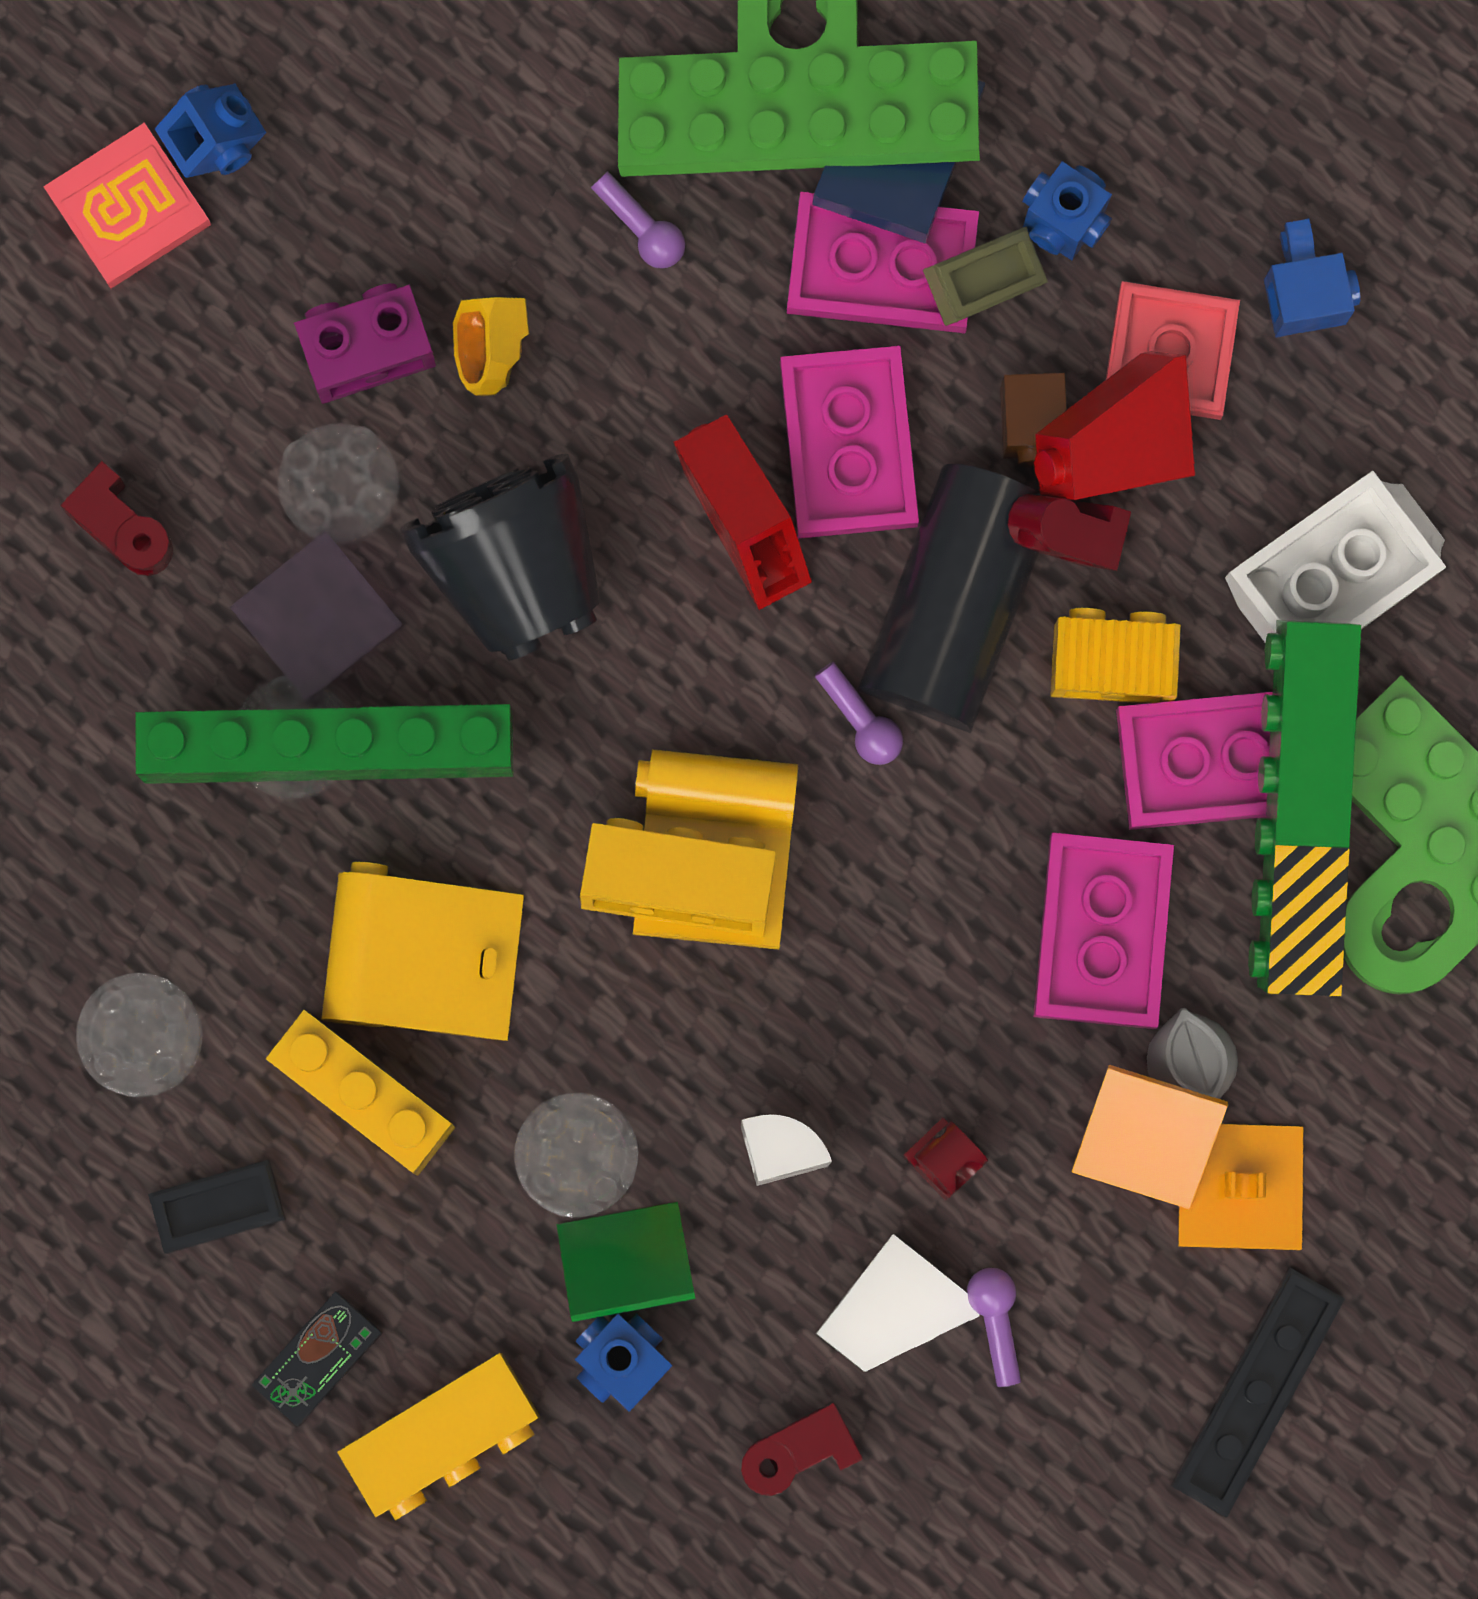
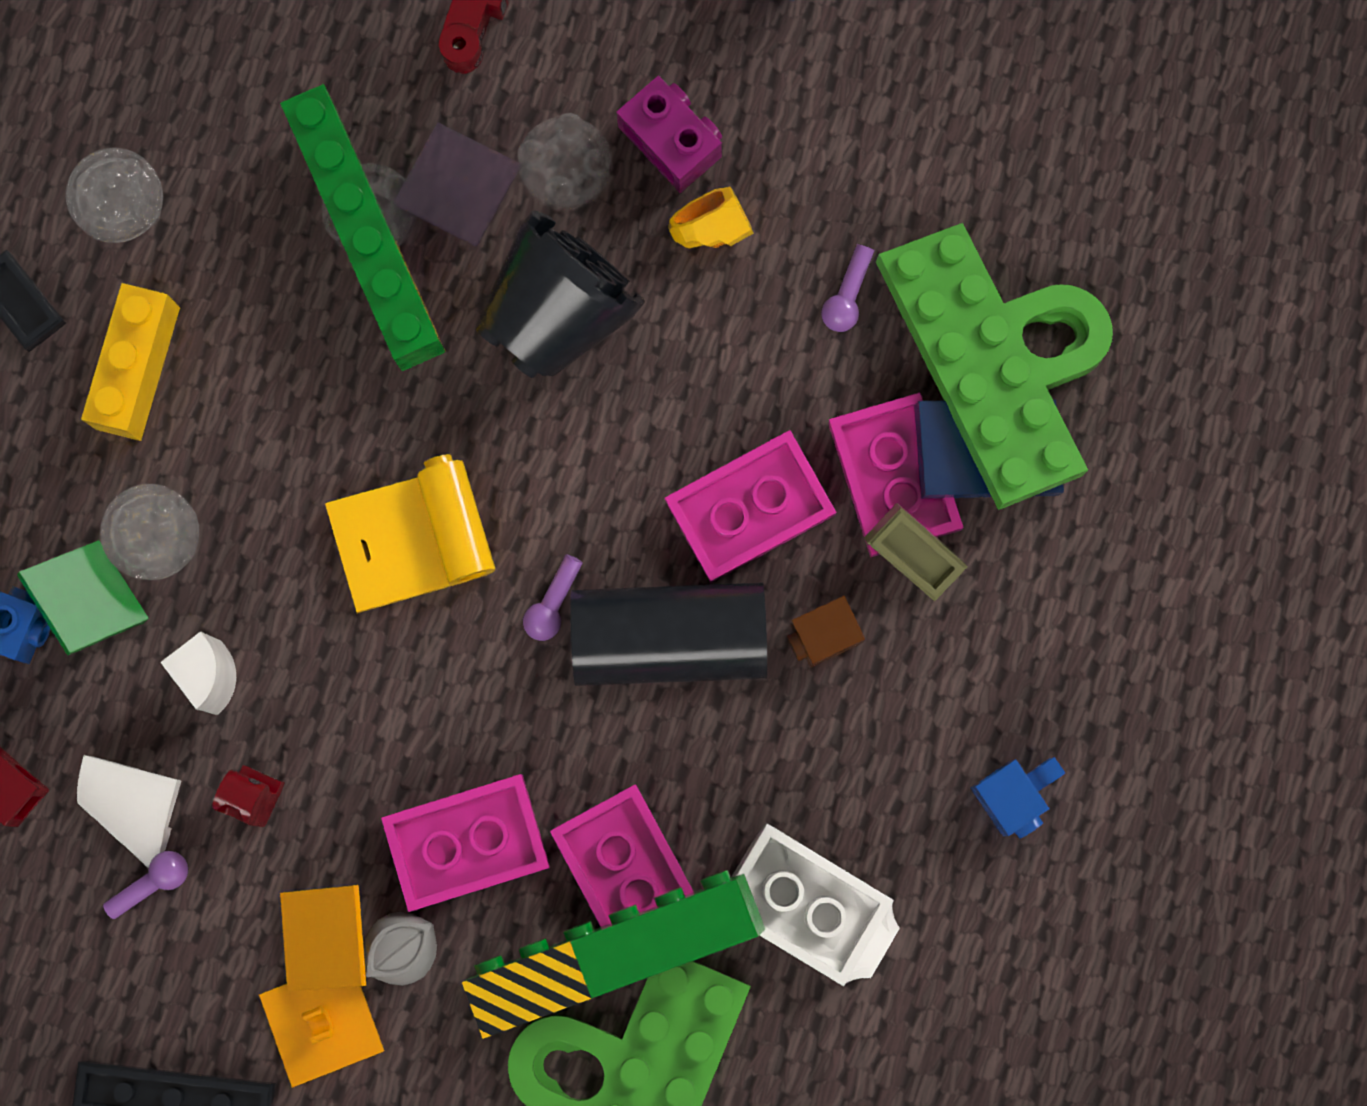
camera: 75 degrees right, 0 degrees up
(413, 955) = (246, 357): yellow door -> none
(678, 877) = (373, 516): yellow brick -> none
(744, 511) = (663, 450): red slope -> none
(1062, 229) = (979, 603): blue brick -> none
(1071, 532) = (743, 682): dark red leg -> none
(1115, 658) = (671, 767): yellow brick -> none
(1121, 433) = (835, 698): red slope -> none
(1178, 324) = (924, 713): coral tile -> none

